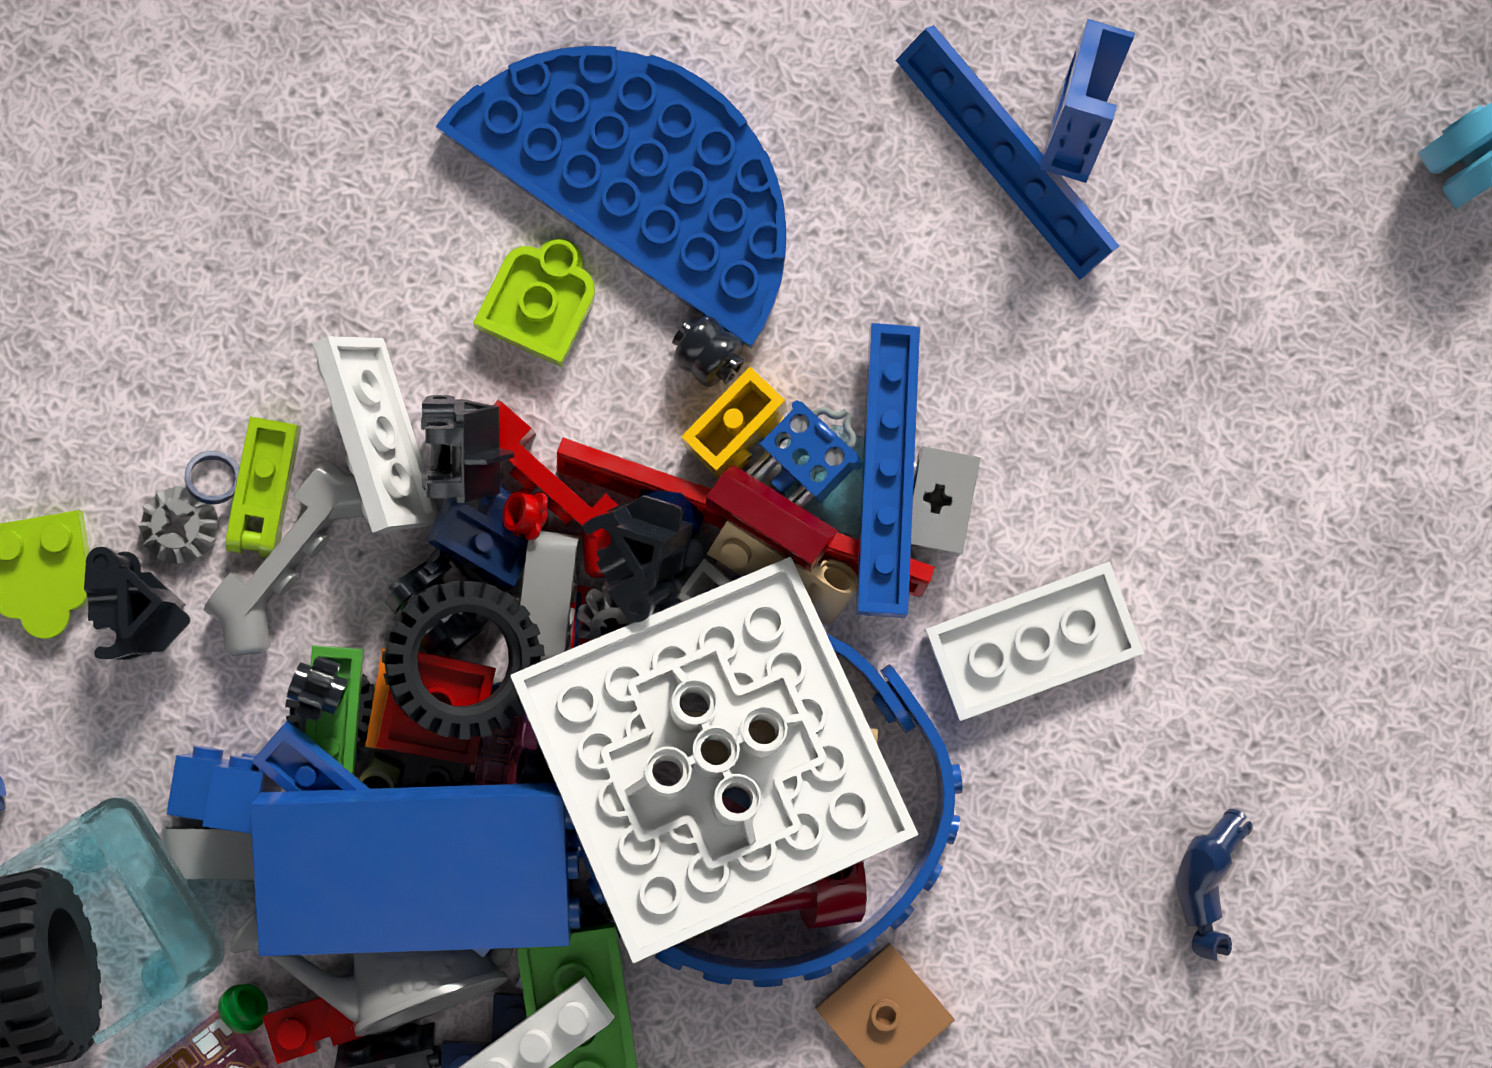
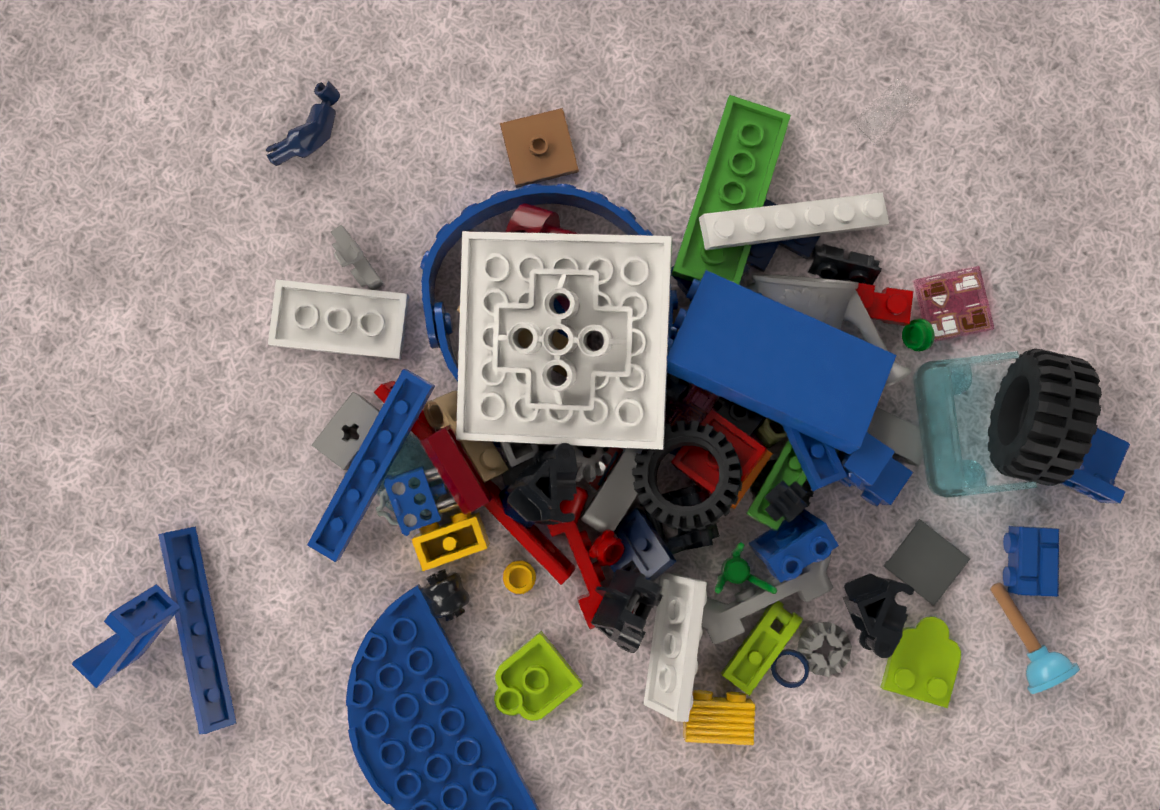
camera: 160 degrees left, 0 degrees up
(94, 705) = (926, 562): none -> dark grey piece
(272, 368) = (720, 719): none -> yellow brick
(279, 637) = (794, 546): none -> blue plate
(340, 569) = (738, 571): none -> green plant
(624, 421) = (519, 577): none -> yellow plate
(1059, 736) = (349, 253): none -> light grey plate

